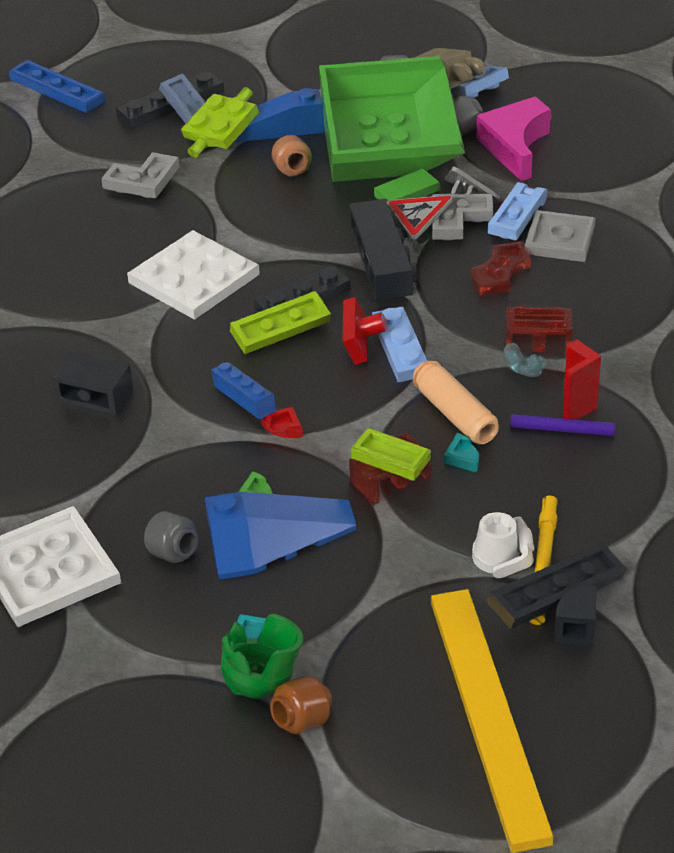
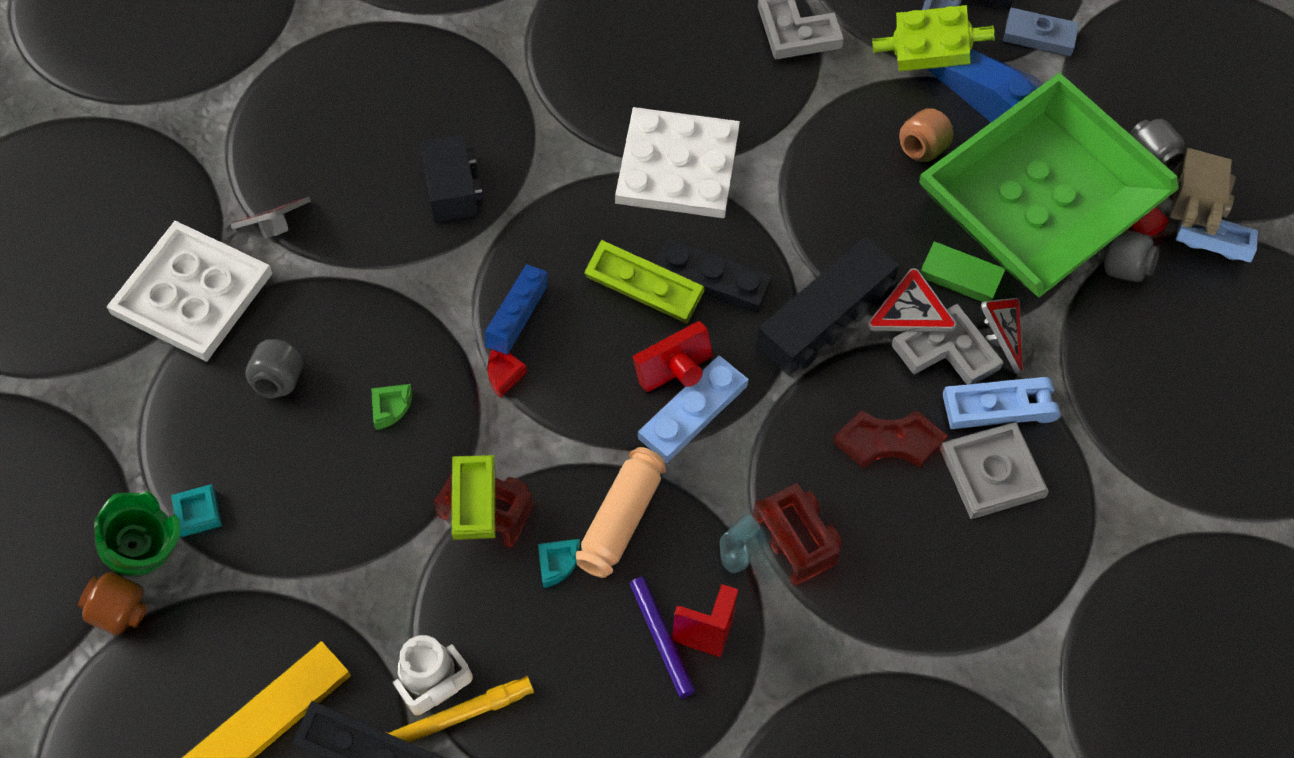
camera: 55 degrees right, 20 degrees up
(26, 484) = (272, 221): none -> light grey piece
(259, 82) = (1040, 32): none -> sand blue plate
(261, 527) = (329, 440): blue wedge -> none
(511, 130) = (1147, 319): dark pink arch -> none

